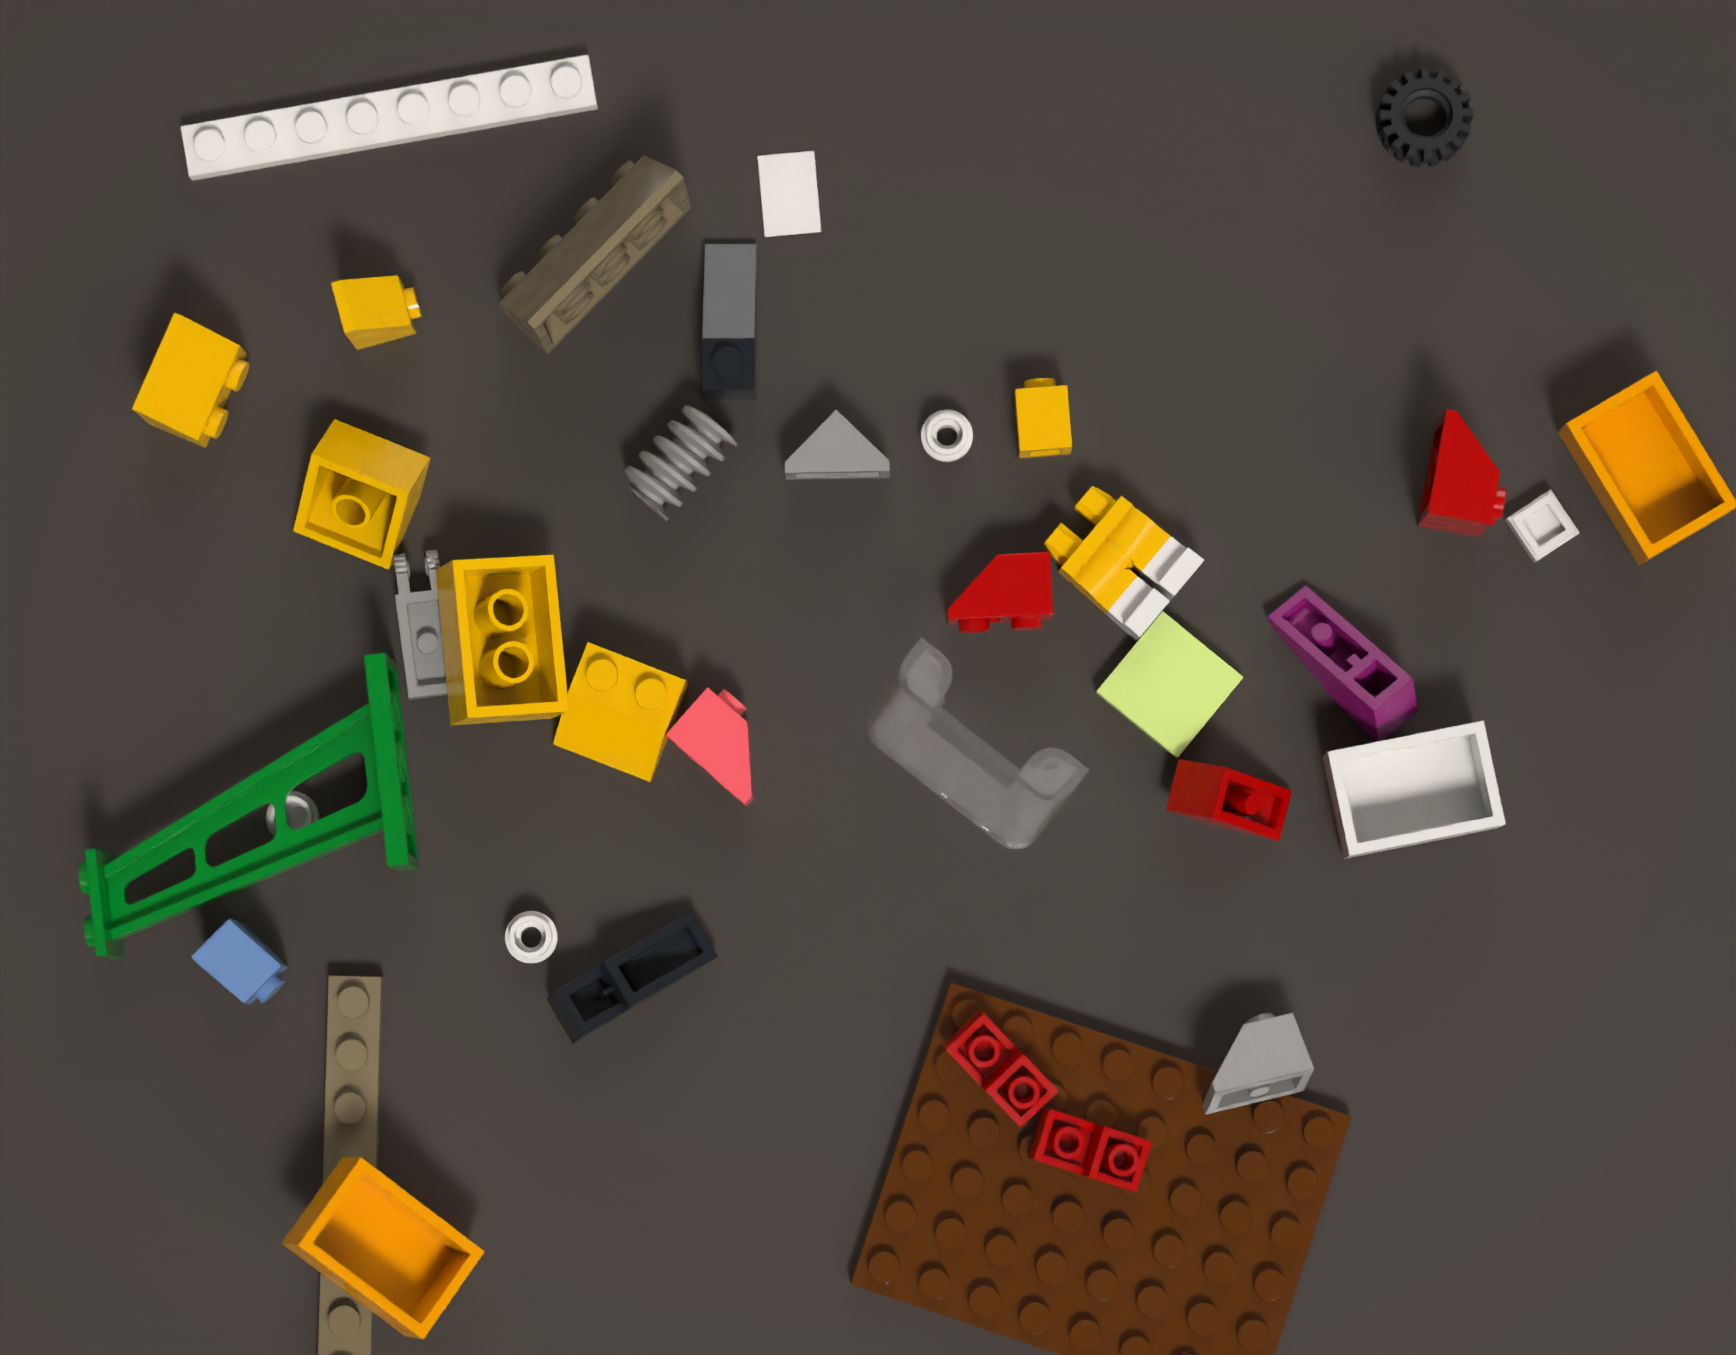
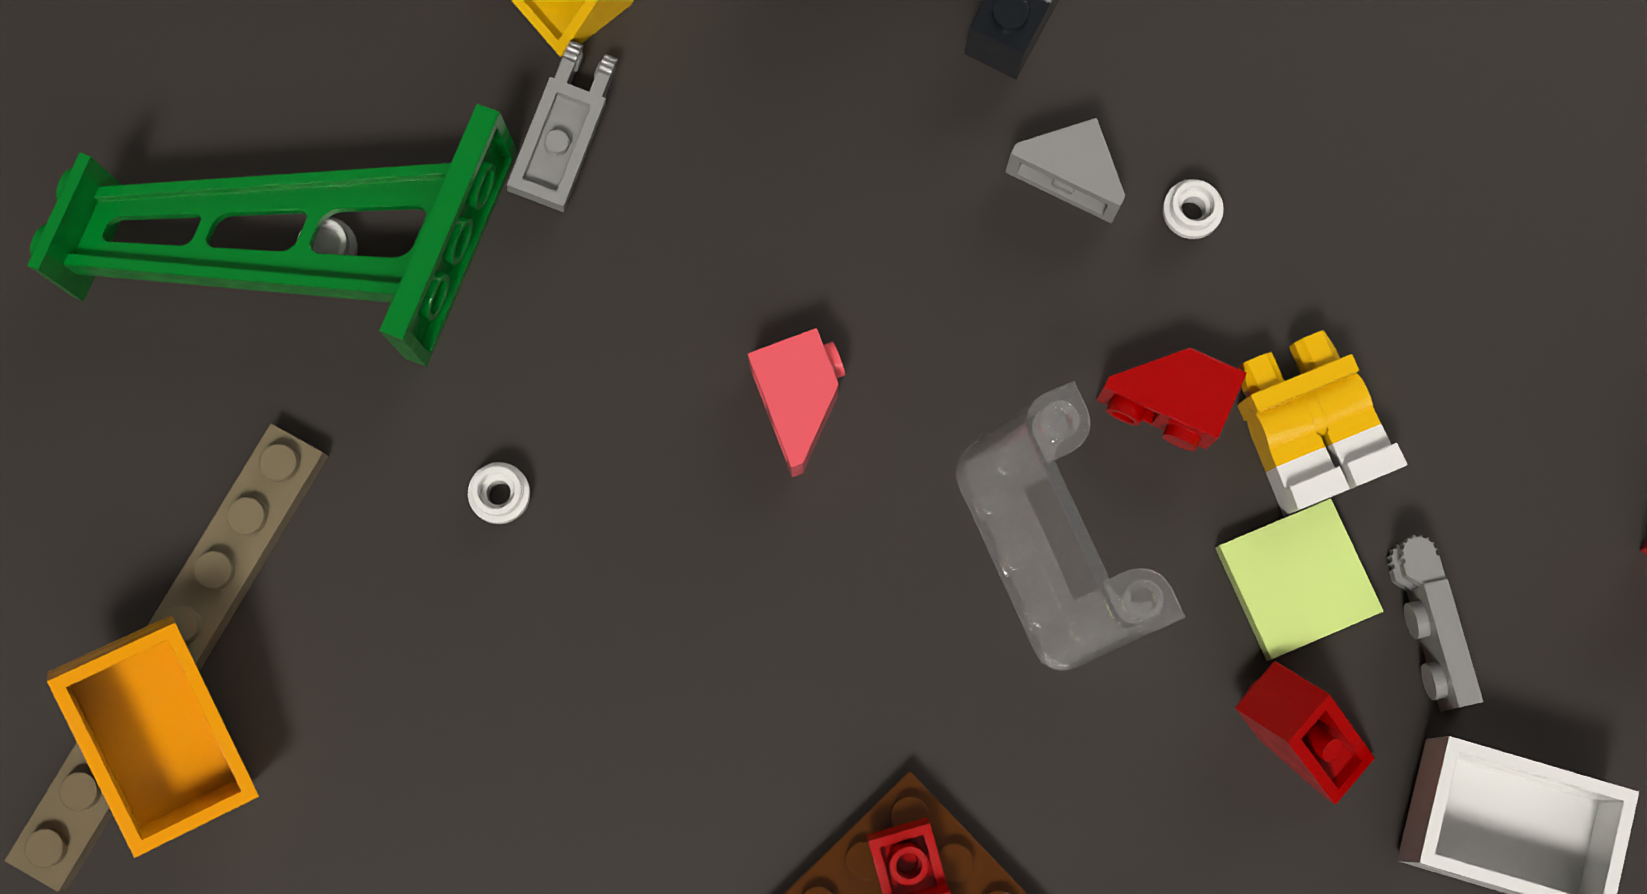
camera: 20 degrees right, 5 degrees down
(241, 962) = (184, 357): medium blue slope -> none
(502, 639) = (632, 171): yellow brick -> none
(620, 712) = (713, 309): yellow slope -> none
(631, 977) = (578, 588): black slope -> none
(678, 460) = (908, 89): light grey piece -> none
(1042, 419) = (1302, 240): yellow brick -> none
(1283, 665) = (1435, 621): none -> light grey hinge
(1346, 664) = (1518, 676): magenta slope -> none

